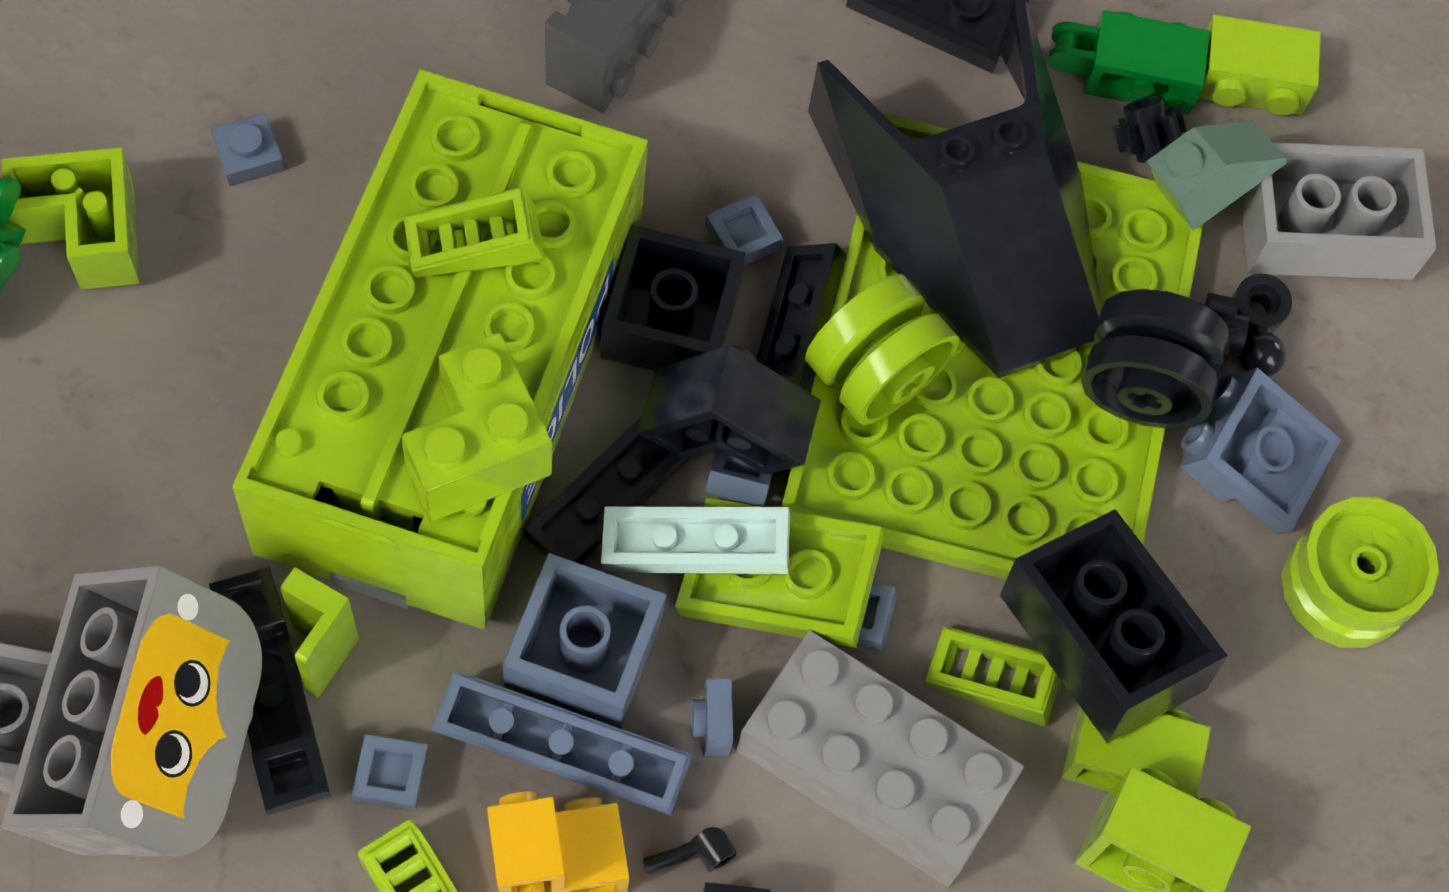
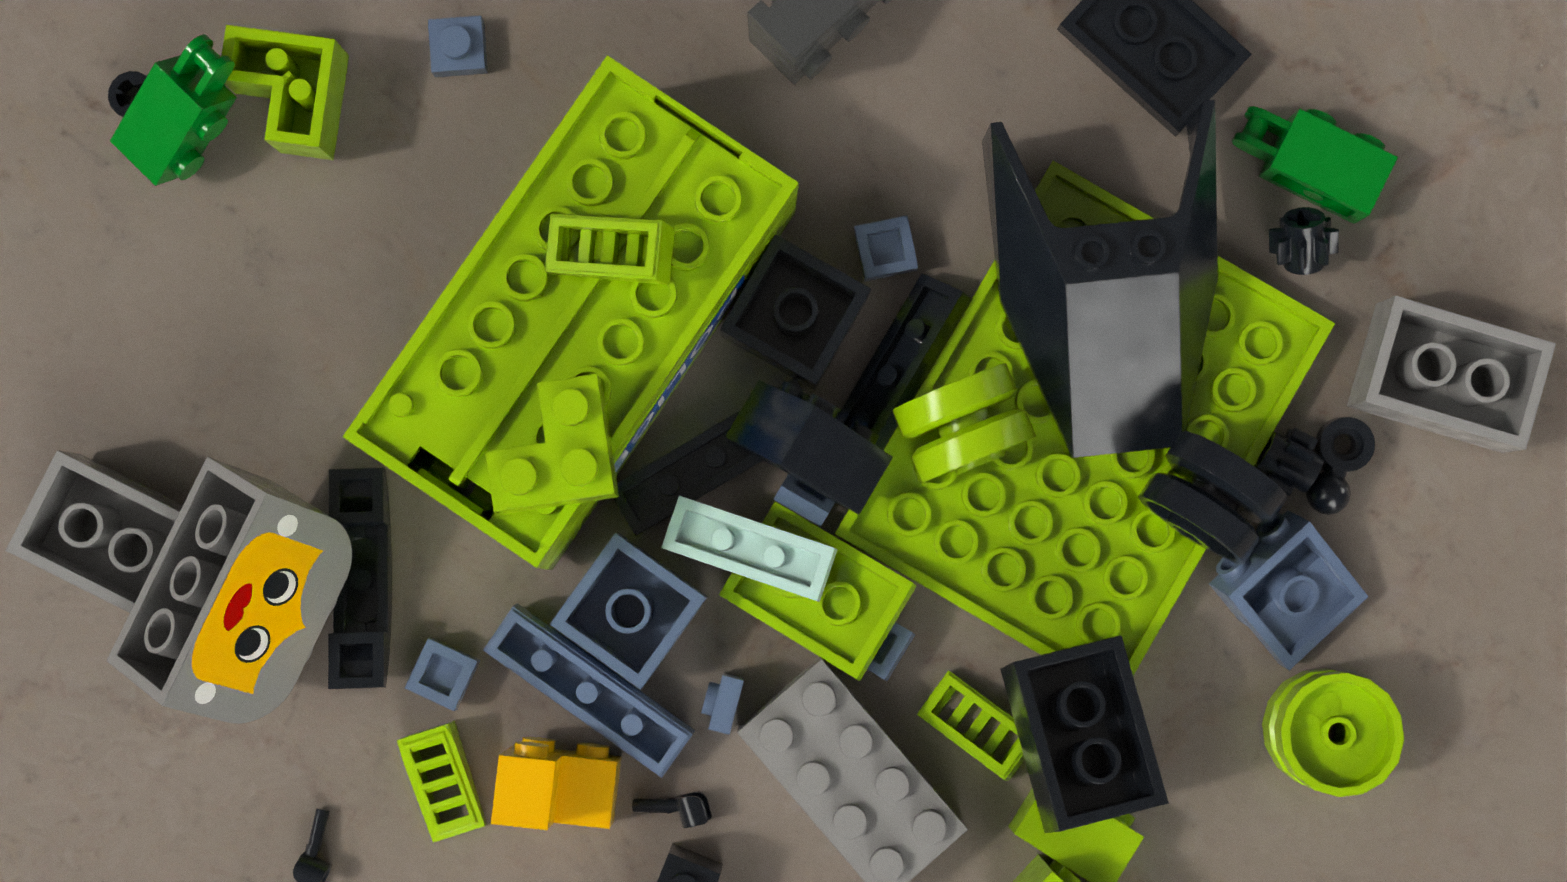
camera: 25 degrees right, 20 degrees up
(328, 624) = (416, 536): lime panel -> none
(1213, 168) = (1343, 314): sand green slope -> none
(1261, 65) = (1438, 199): lime brick -> none

